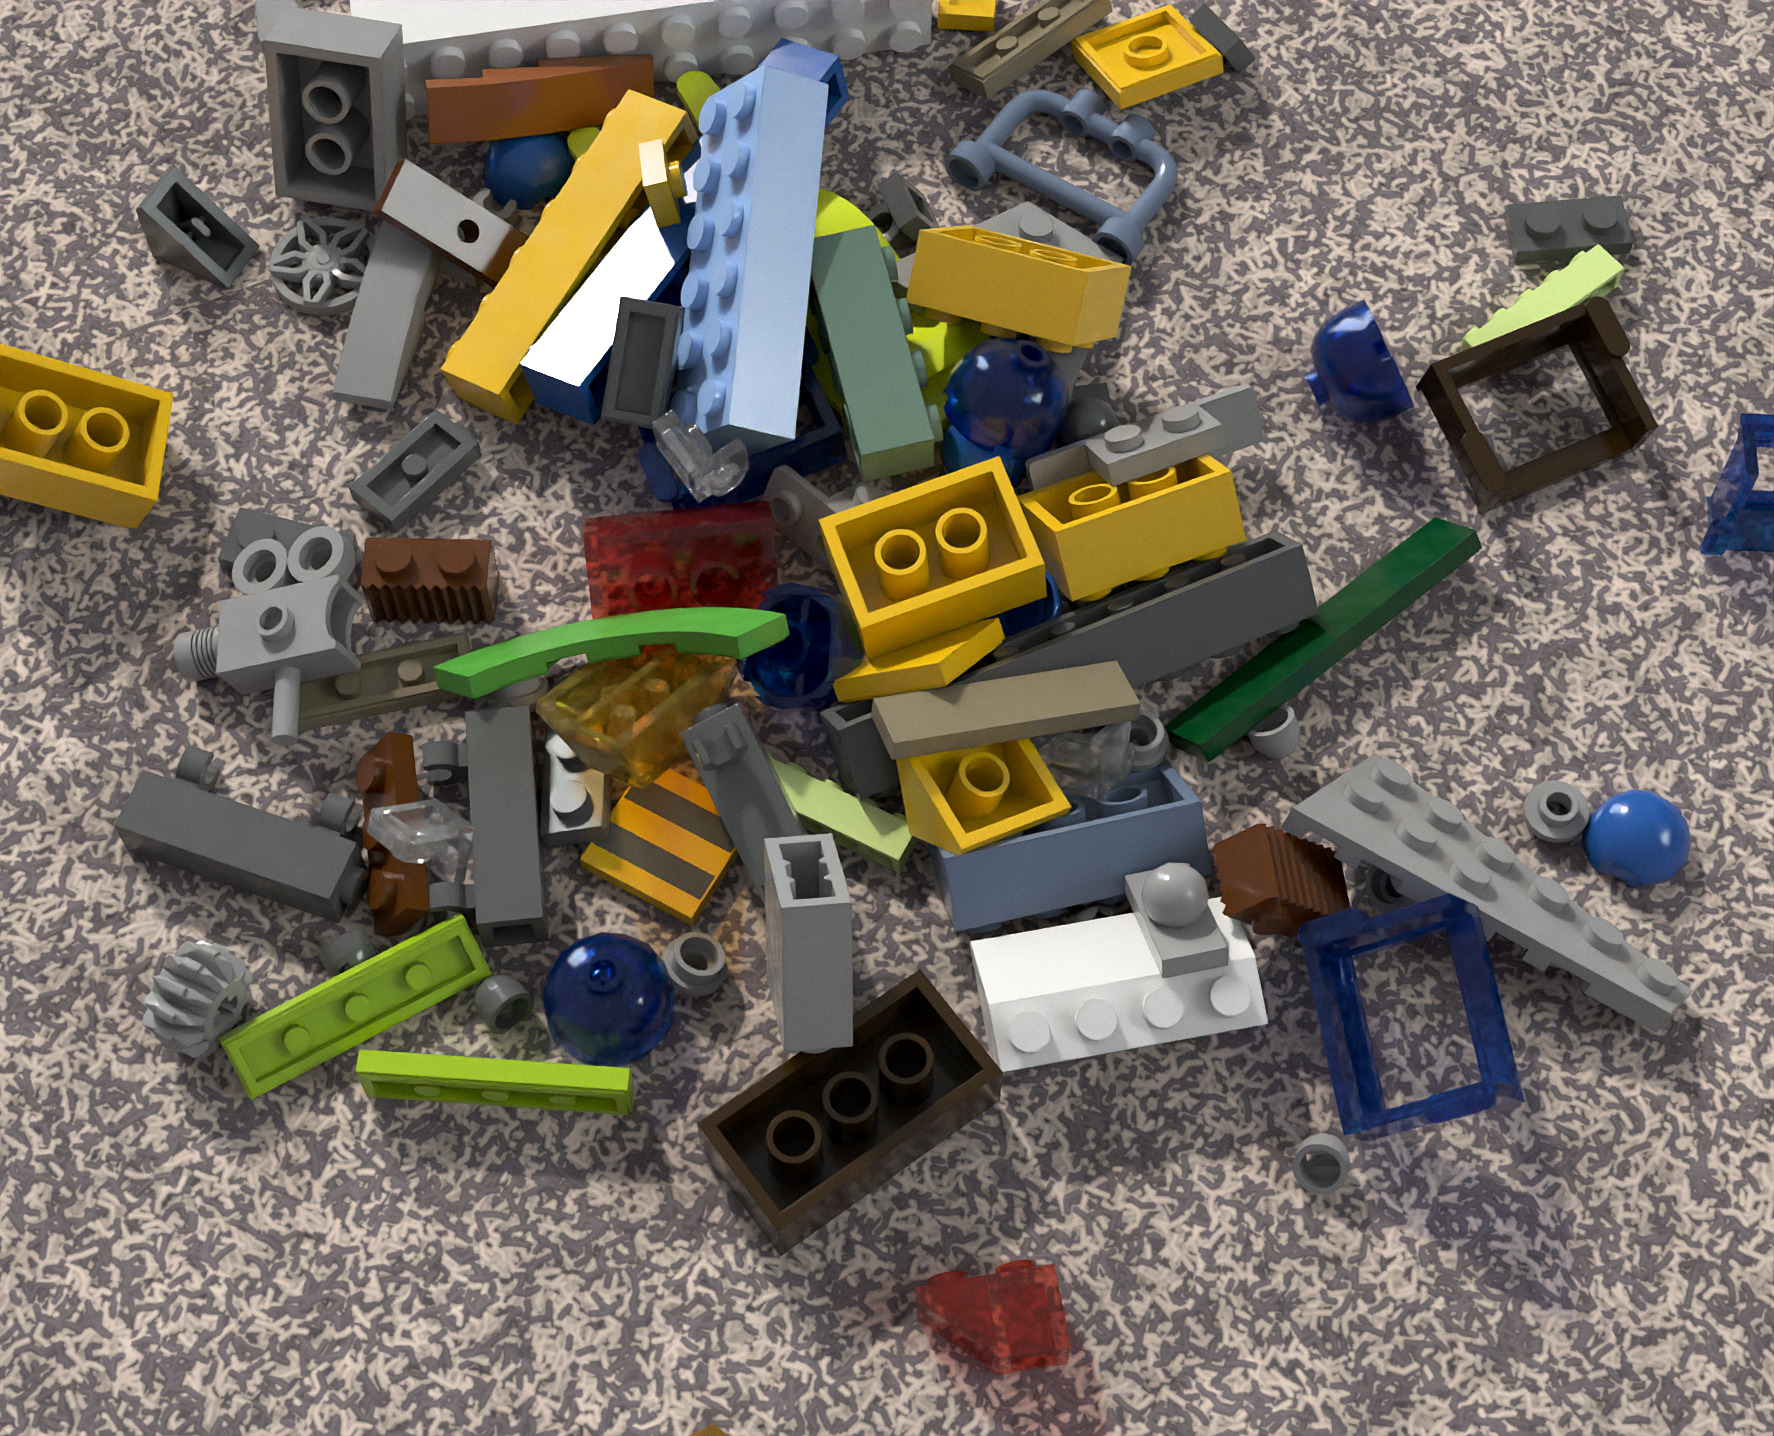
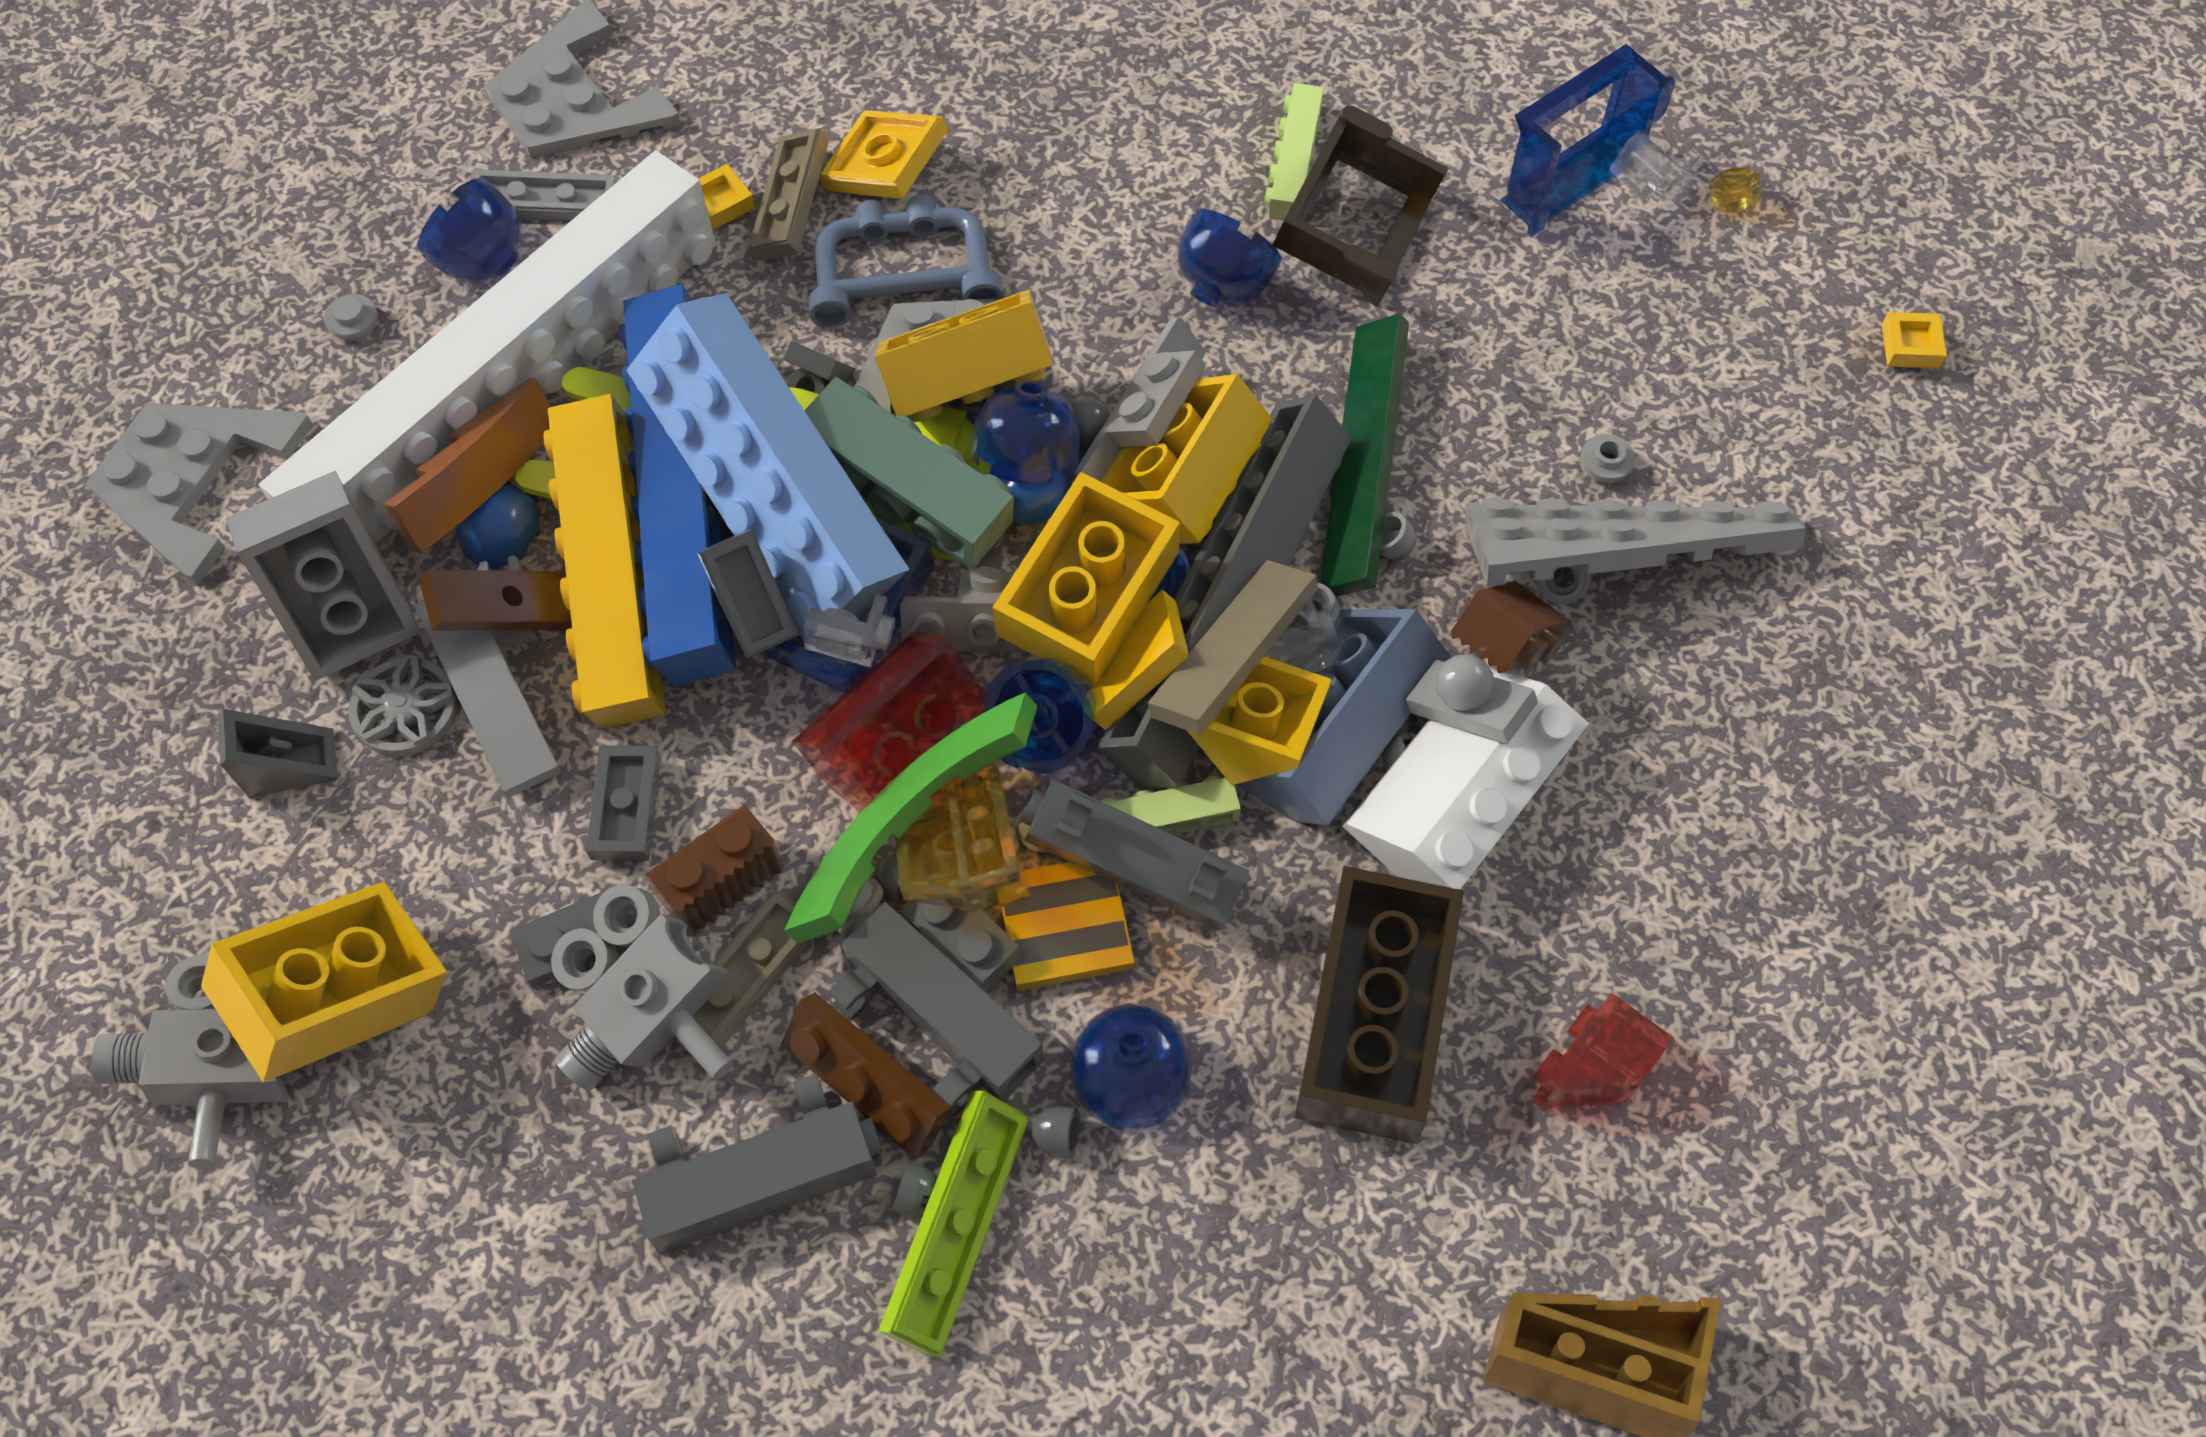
camera: 40 degrees left, 0 degrees up
(197, 998) = (837, 1316): light grey gear -> none
(427, 834) = (904, 1053): clear bracket -> none
(496, 1082) = (1112, 1191): lime tile -> none
(662, 182) = (642, 455): yellow plate -> none
(697, 950) = (1172, 980): light grey plate -> none
(809, 943) = (1272, 901): light grey brick -> none
(1221, 38) = (923, 104): dark grey tile -> none
(1323, 1173) = (1692, 791): light grey hinge -> none
(1329, 953) = (1771, 655): clear blue piece -> none
(1567, 227) = (1258, 89): dark grey plate -> none
(1637, 838) = (1669, 438): blue hair -> none

